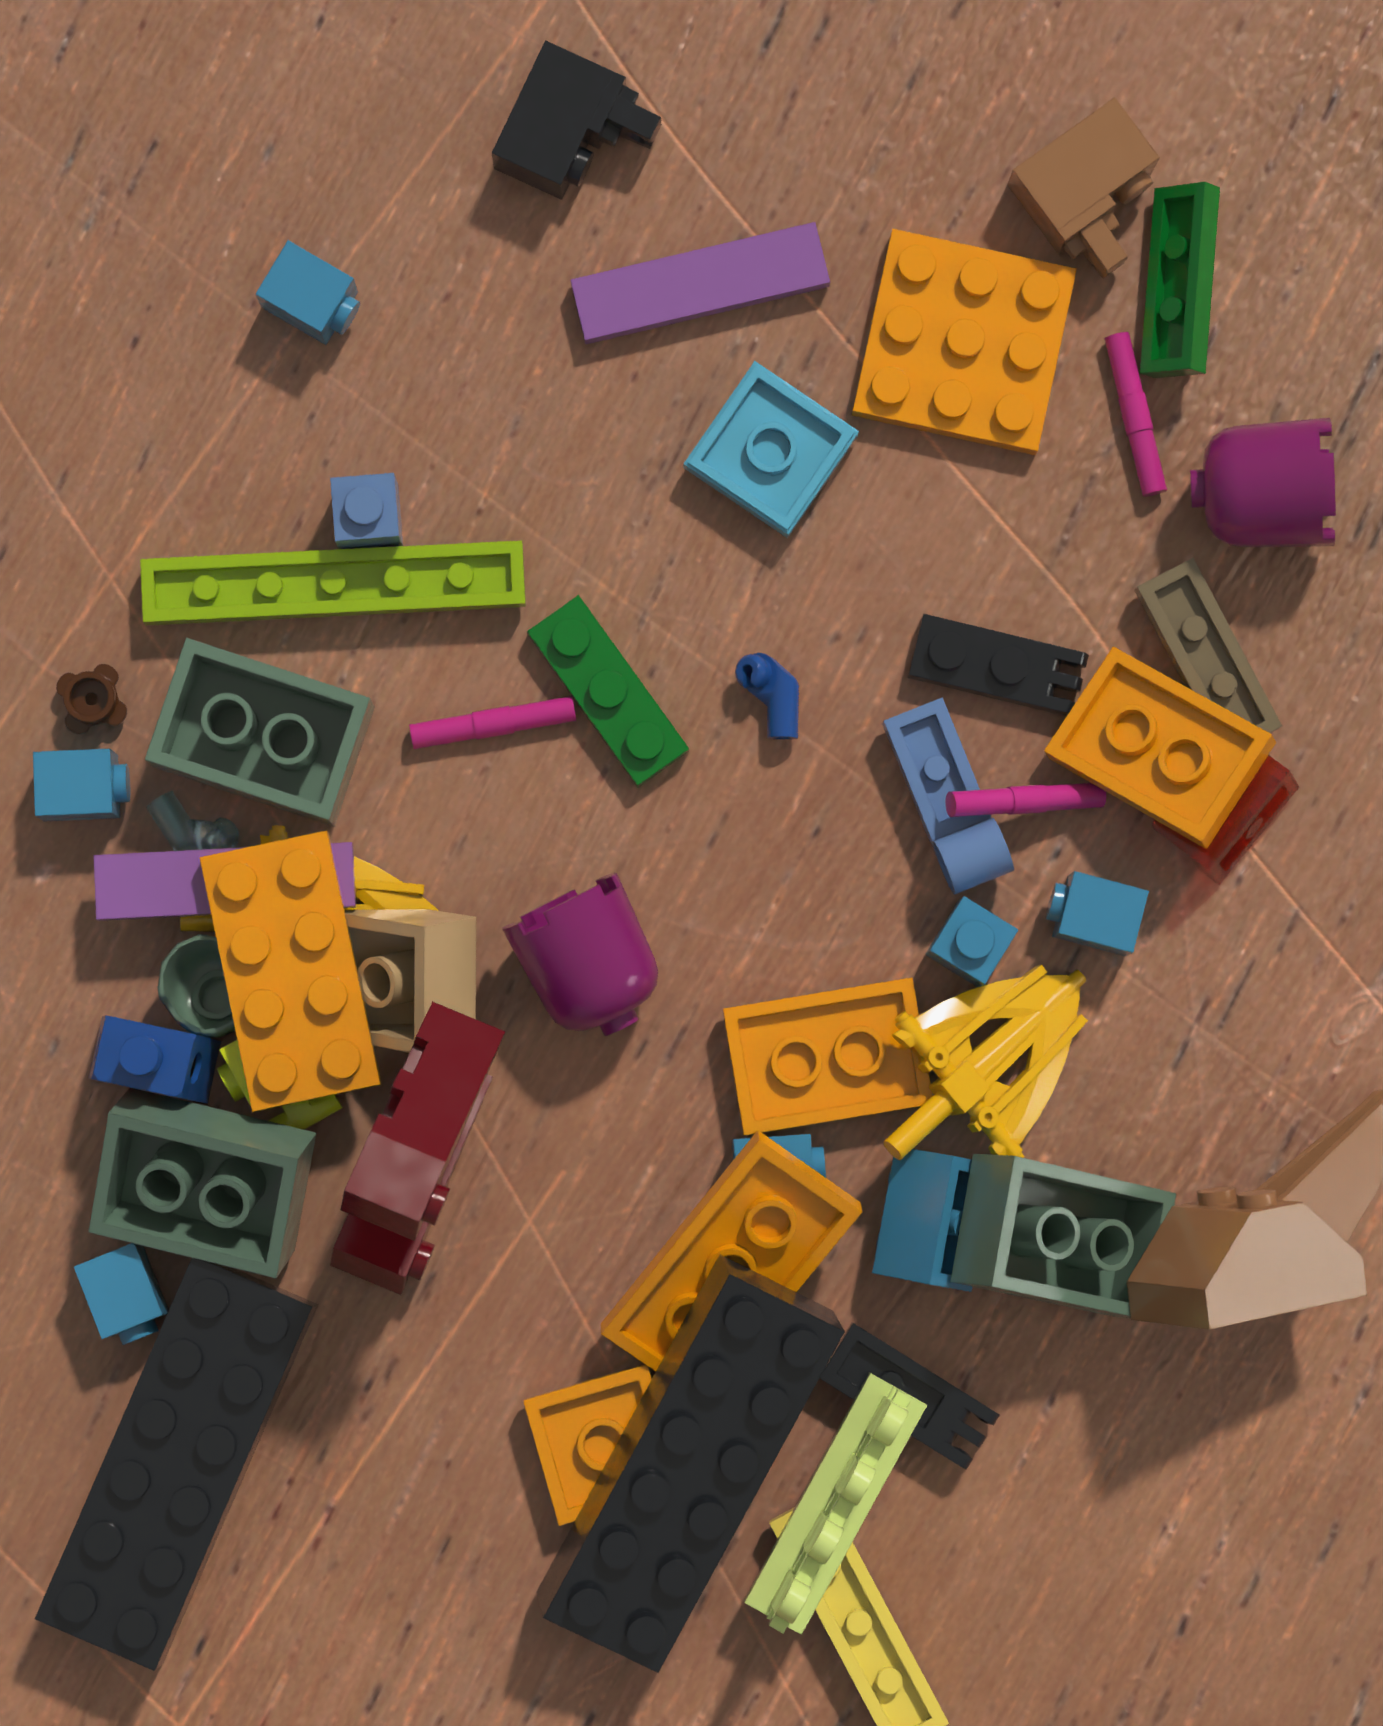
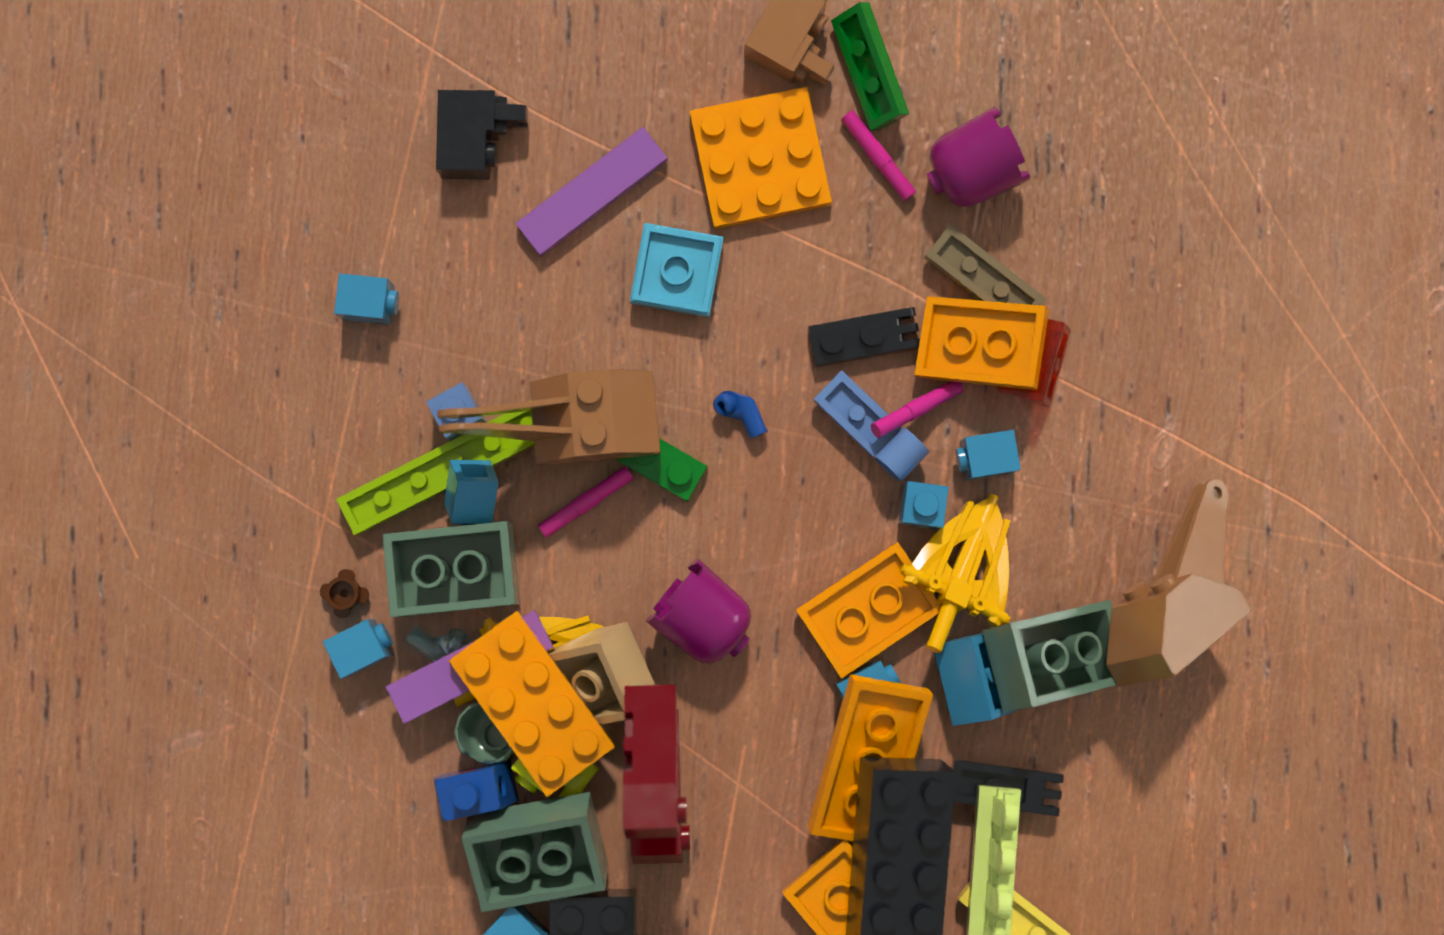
camera: 15 degrees left, 0 degrees up
(336, 634) = (471, 492): none -> dark azure brick
(535, 595) = (577, 417): none -> medium nougat slope

